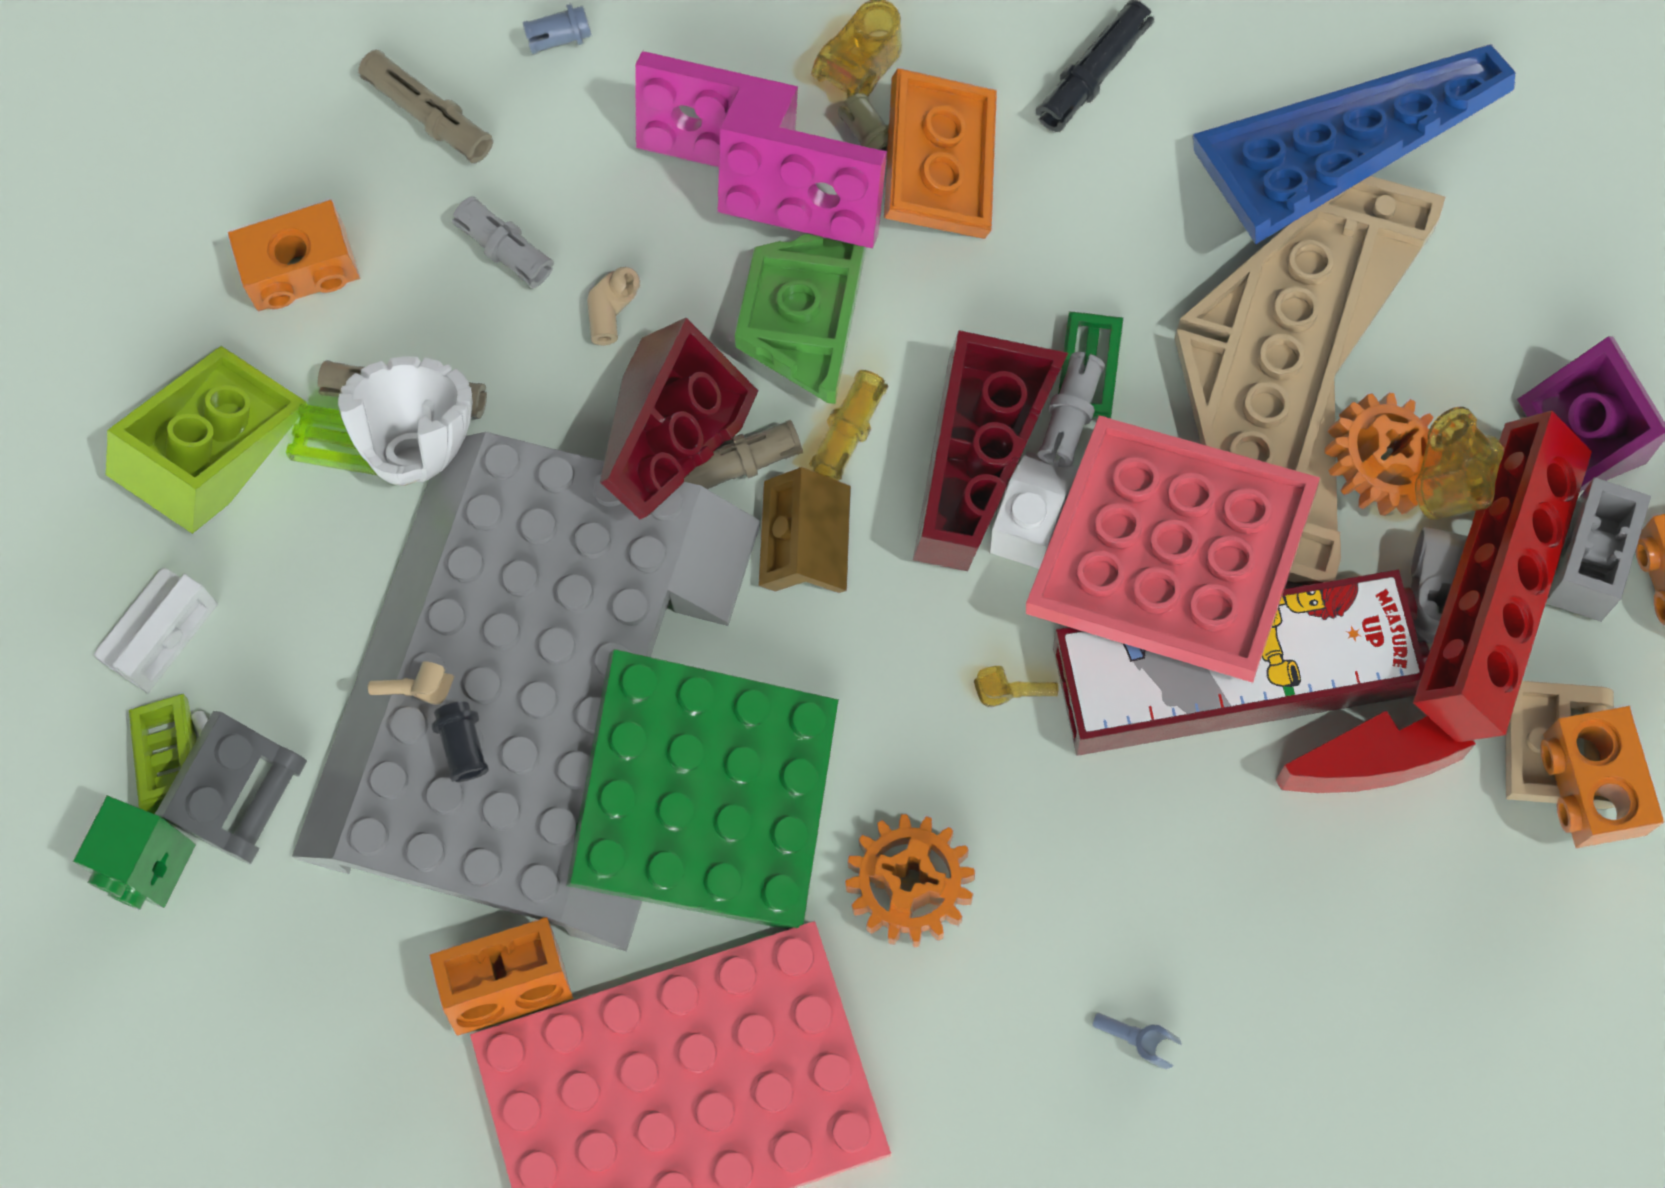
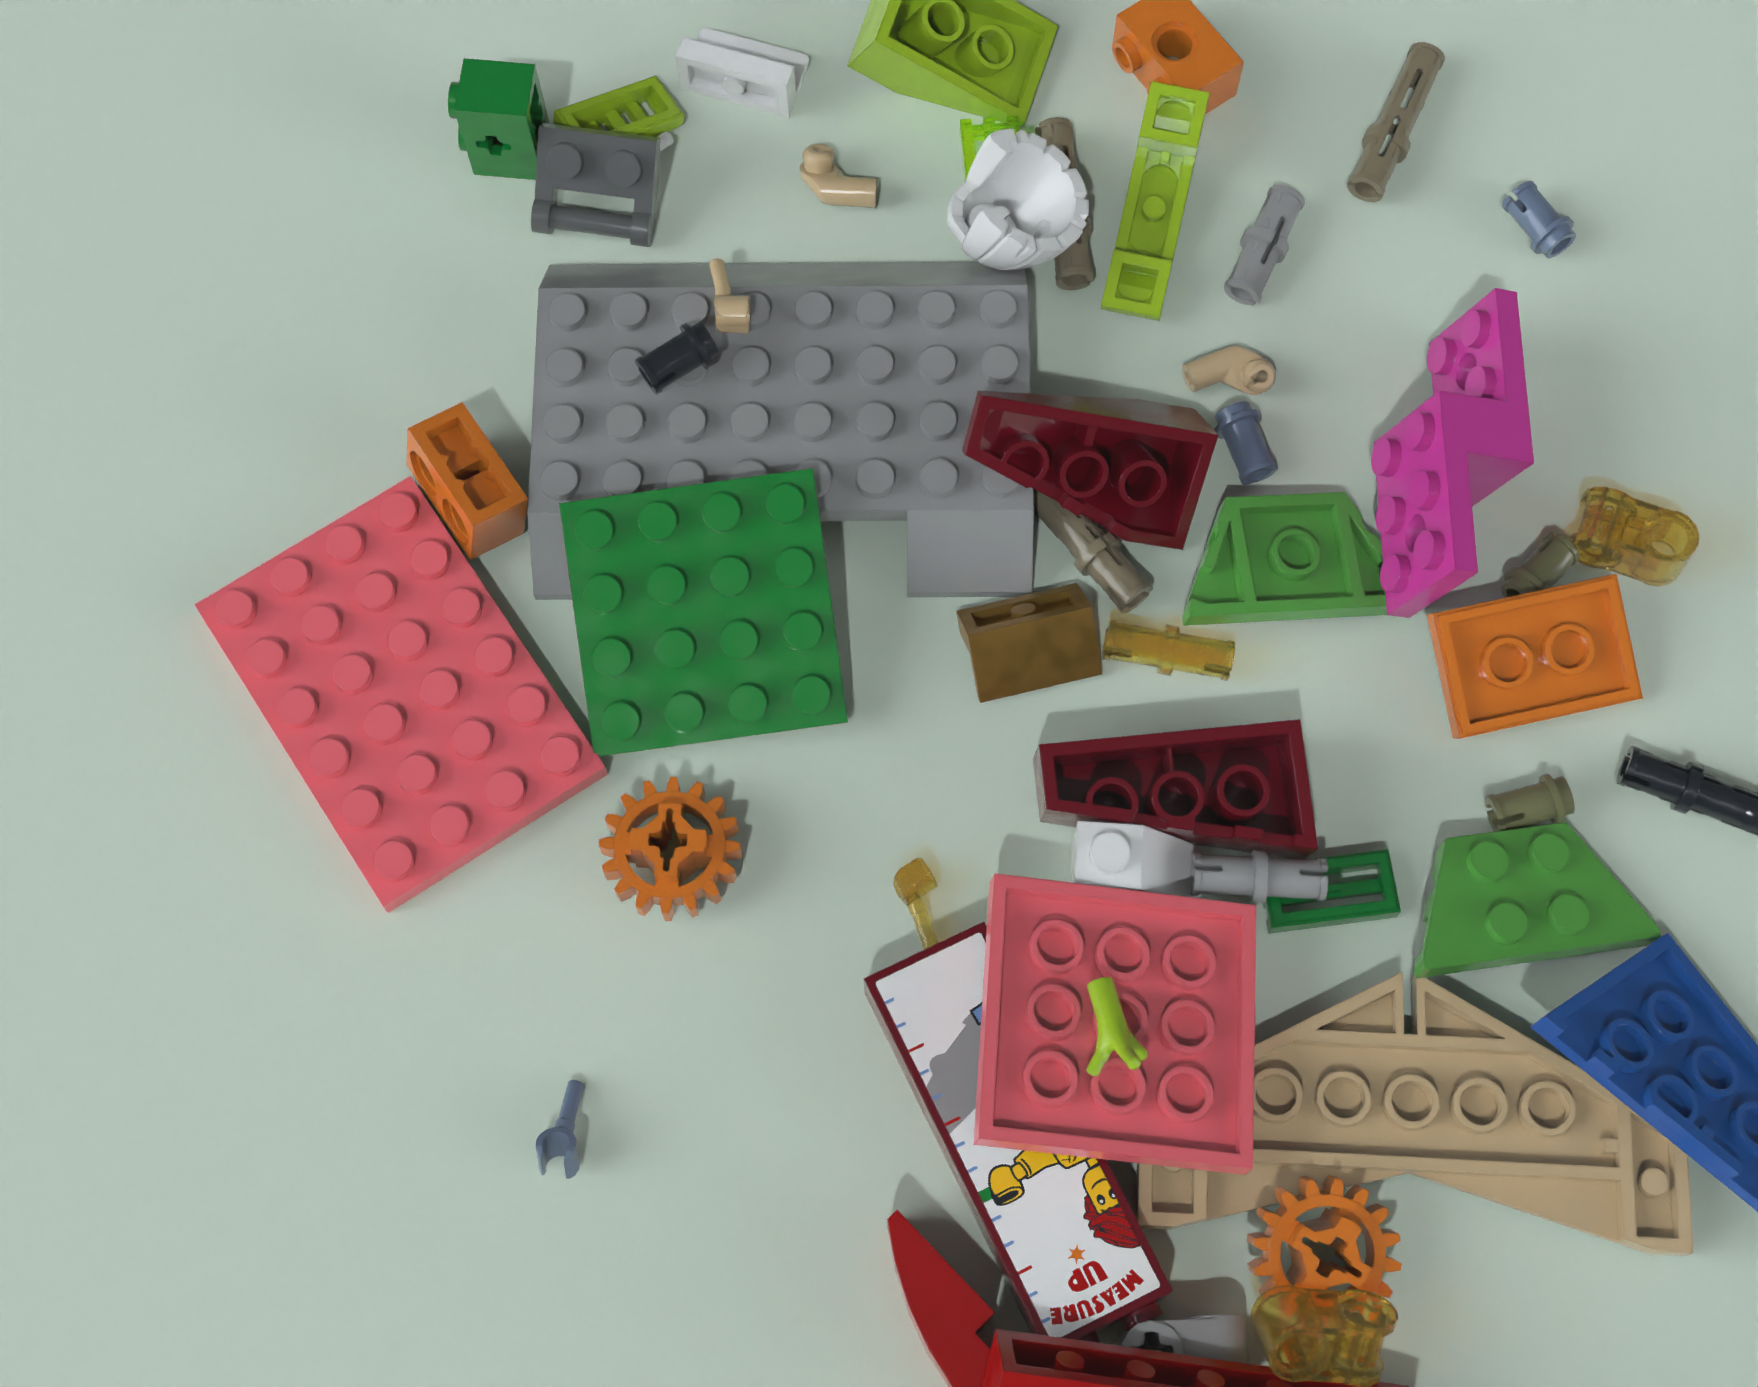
camera: 70 degrees right, 0 degrees up
(307, 582) = (829, 182): none -> tan arm
(431, 316) = (1155, 201): none -> lime slope
(671, 308) = (1245, 442): none -> sand blue pin
(1061, 187) = (1531, 804): none -> olive pin
(1140, 227) = (1524, 901): none -> bright green wing
(1188, 544) = (1111, 1028): none -> lime bar

